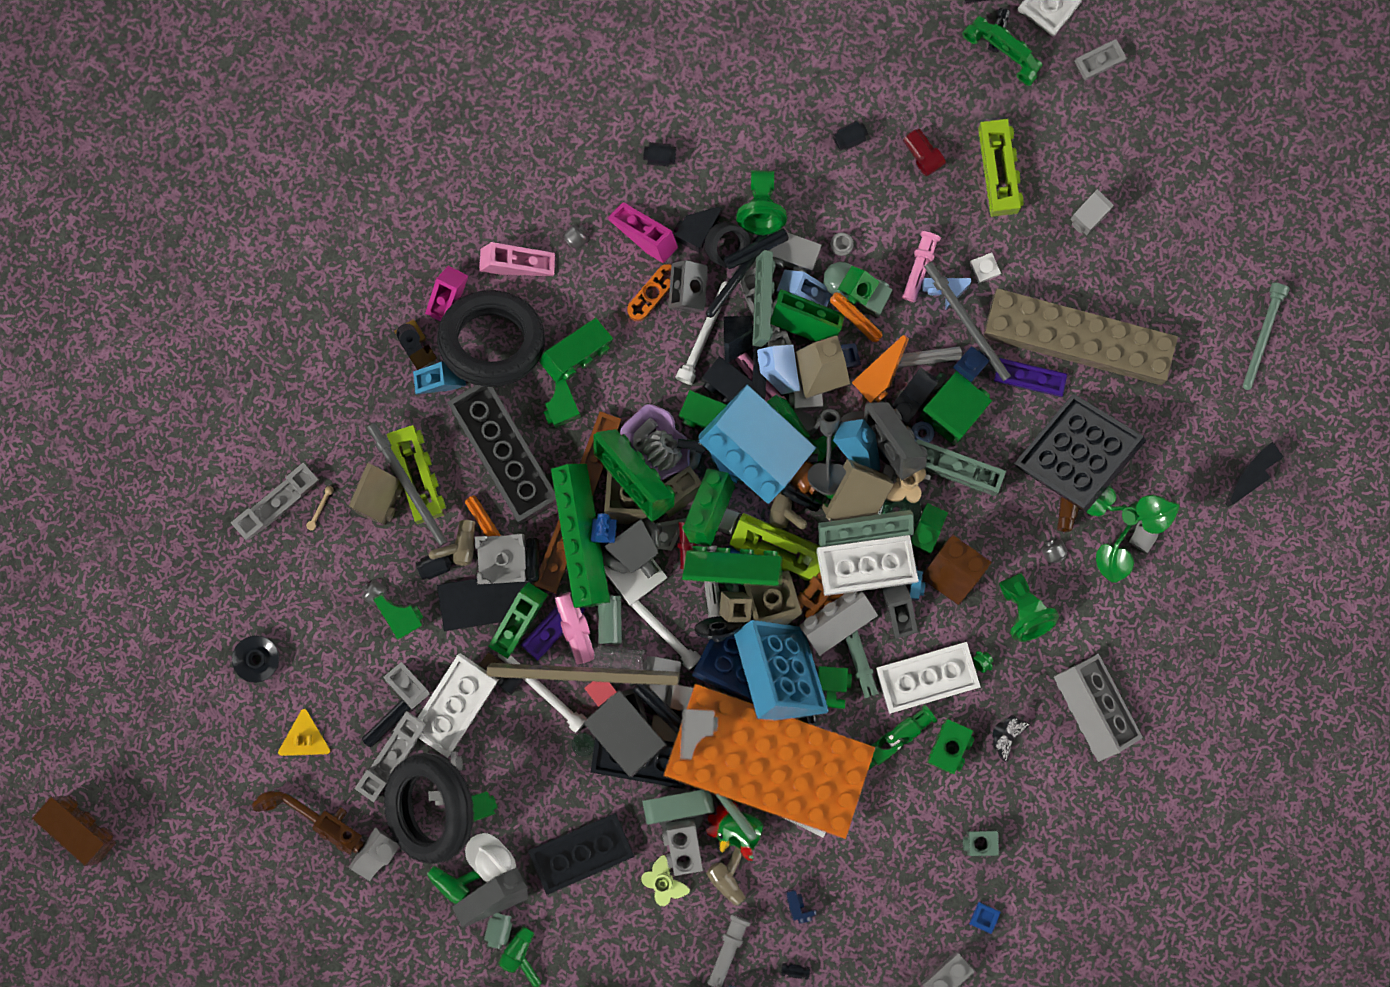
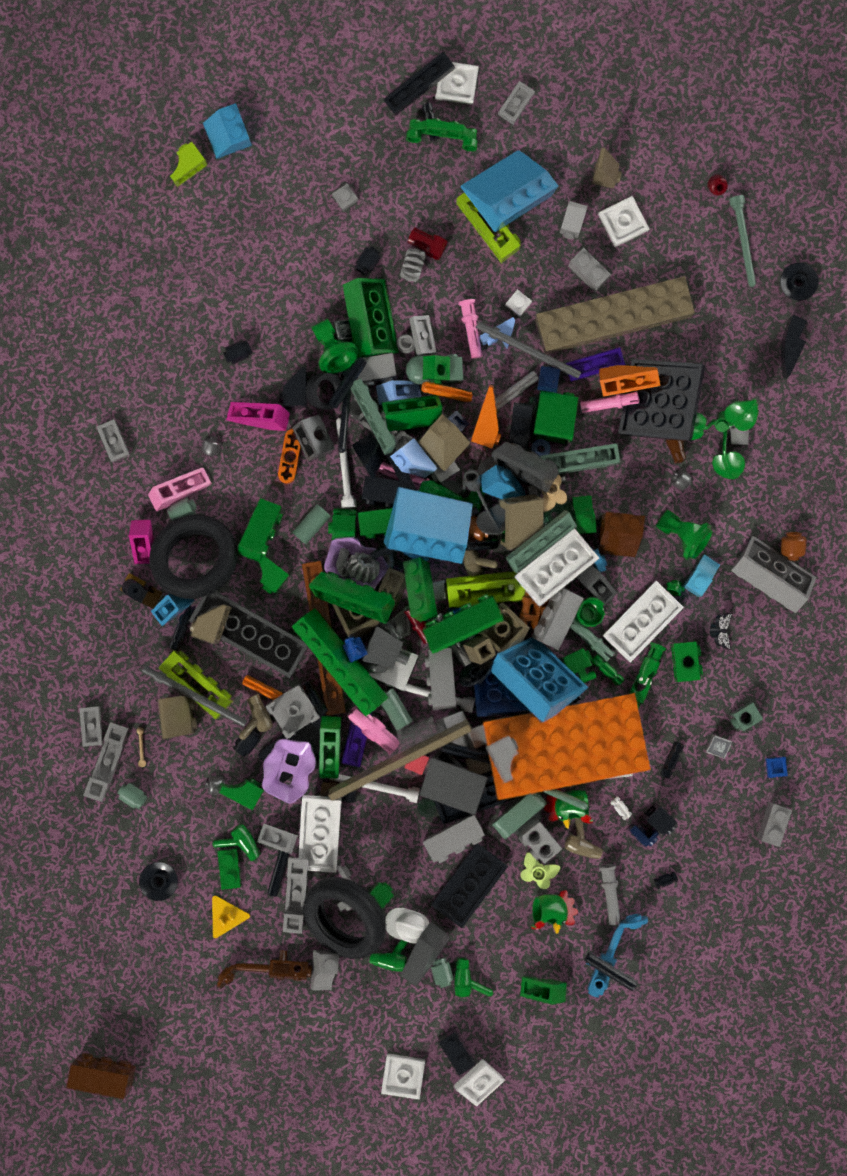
camera: 30 degrees left, 5 degrees up
(280, 553) = (132, 796): none -> sand green brick
(281, 456) = (91, 726): none -> light grey plate
(337, 689) = (229, 869): none -> green plate
(370, 666) = (243, 839): none -> green piece
(430, 411) = (179, 632): none -> black axle
(450, 606) = (275, 765): none -> lavender piece
(469, 417) = (211, 624): none -> dark tan slope
(477, 173) = (113, 441): none -> light grey plate
(508, 283) = (182, 508): none -> sand green brick
(593, 794) = (454, 838): none -> light grey brick
(633, 375) = (311, 524): none -> sand green pin
(656, 933) = (554, 910): none -> green piece
(667, 393) = (343, 523): none -> green brick
(676, 615) = (441, 679): none -> light grey brick
(786, 194) = (343, 330): none -> slope
(791, 865) = (621, 808): none -> white piece
(820, 195) = (370, 317): none -> green slope
(826, 900) = (660, 819): none -> black brick
(860, 708) = (608, 670): none -> green axle
(864, 57) = (345, 197): none -> light grey plate
(864, 244) = (422, 335): none -> light grey plate
(875, 844) = (672, 760): none -> black axle
(877, 635) = (591, 612): none -> green hair
(895, 165) = (412, 264): none -> light grey gear
(934, 859) = (718, 746): none -> slope
(1018, 665) = (701, 576): none -> medium azure arch
(1024, 425) = (610, 402): none -> bright pink pin
(1042, 144) = (509, 189): none -> dark azure slope
(1054, 409) = (627, 378): none -> orange slope
(1079, 274) = (589, 270): none -> light grey brick
(1136, 688) = (793, 545): none -> dark orange head
(1145, 245) = (623, 221): none -> white tile
(1156, 180) = (606, 170): none -> dark tan slope
(1267, 261) = (717, 185): none -> dark red piece
(1310, 410) = (807, 277): none -> black dish

